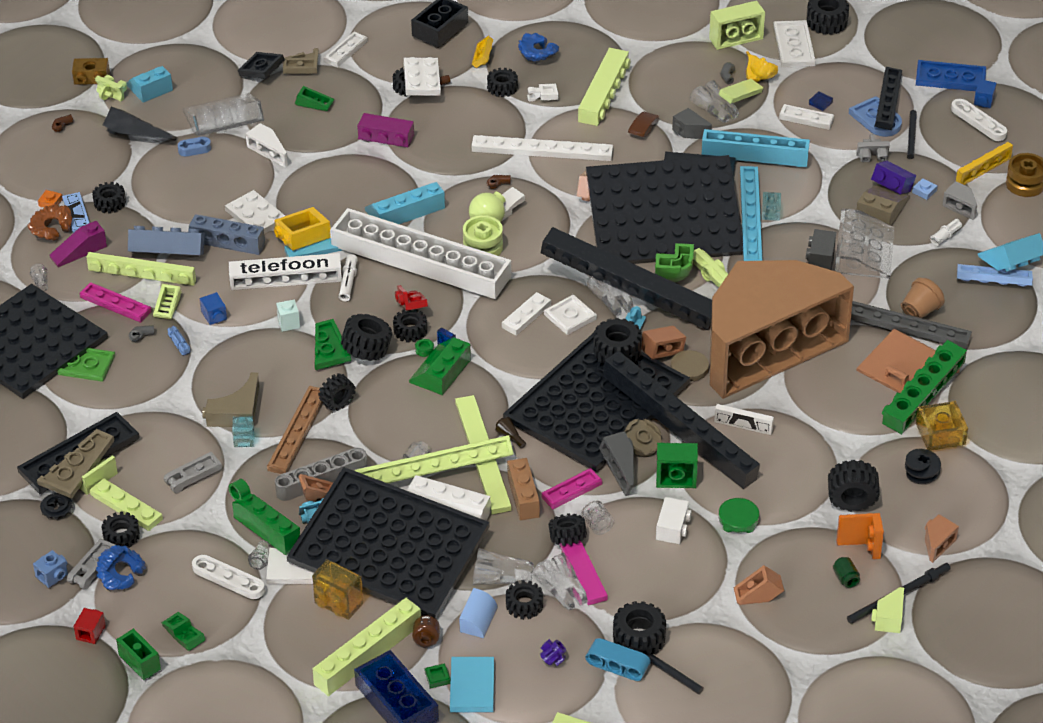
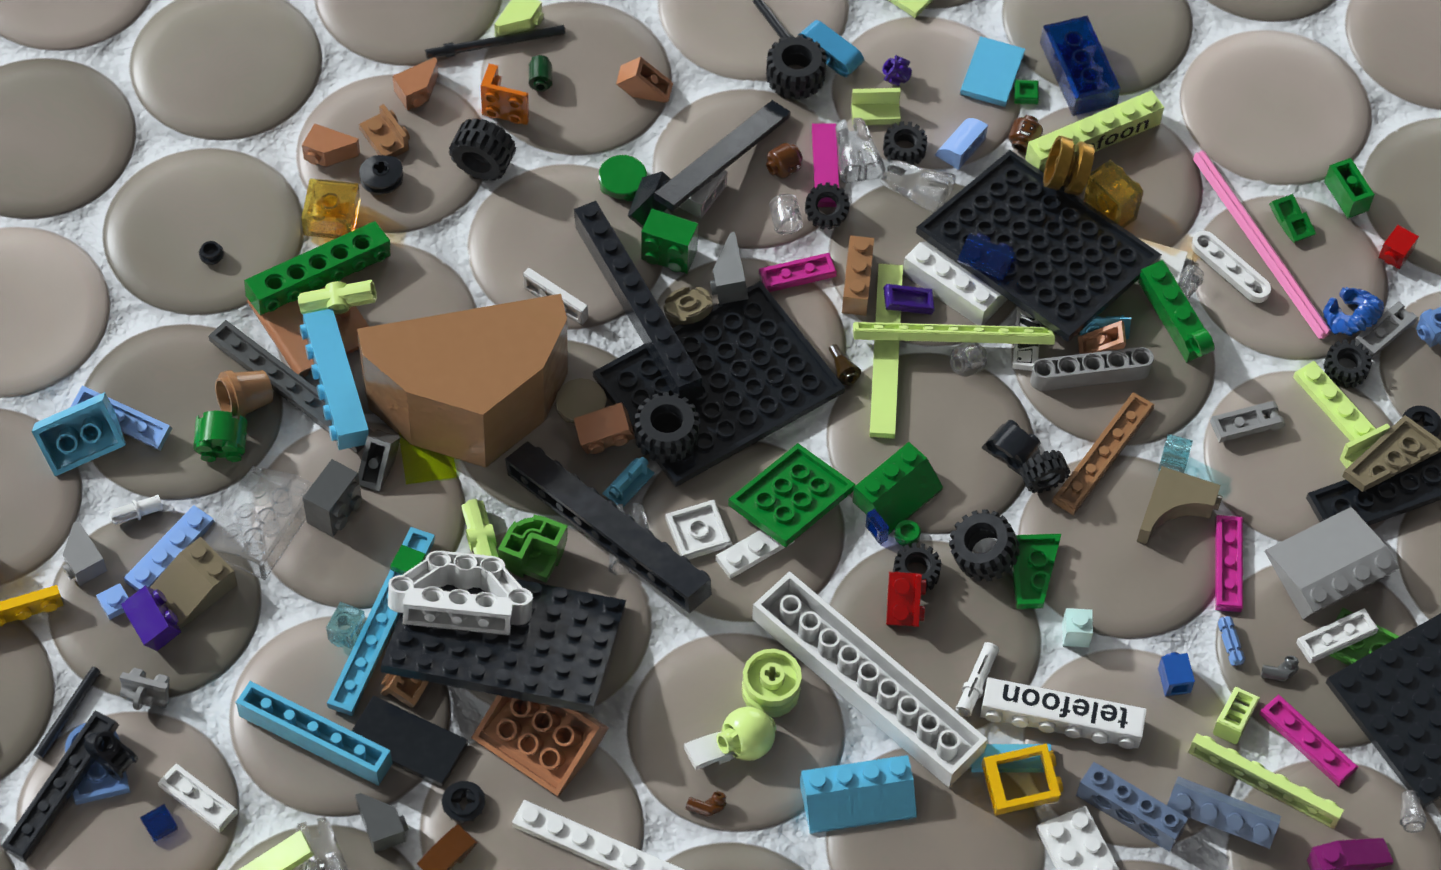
camera: 165 degrees left, 15 degrees up
(103, 356) = (1337, 635): none -> white tile
(113, 389) = (1330, 561): none -> light grey slope
(189, 385) = (1229, 563): none -> dark pink tile
(208, 605) = (1262, 245): none -> bright pink axle
(369, 411) = (1012, 445): none -> black cylinder
(379, 583) = (1068, 165): none -> pearl gold wheel
(424, 504) = (987, 256): none -> clear blue bracket
(481, 482) = (908, 299): none -> dark purple tile
(513, 340) = (791, 495): none -> green plate
(560, 623) = (876, 105): none -> yellowish green panel
(617, 560) = (784, 160): none -> reddish brown head
(653, 146) = (455, 793): none -> black gear
(665, 534) = (721, 155): none -> tile
(682, 228) = (427, 605): none -> white brick
(706, 500) = (644, 201): none -> black slope
(751, 239) = (406, 559): none -> green tile
(868, 106) = (114, 757): none -> black piece
(878, 330) = (335, 379): none -> medium azure brick
(895, 360) = (338, 296): none -> yellowish green piece
(910, 221) = (181, 535): none -> light blue plate
(918, 265) = (220, 436): none -> green brick
(939, 498) = (385, 133): none -> medium nougat bracket
(975, 474) = (329, 146): none -> nougat slope
(1010, 386) = (211, 253): none -> black plate

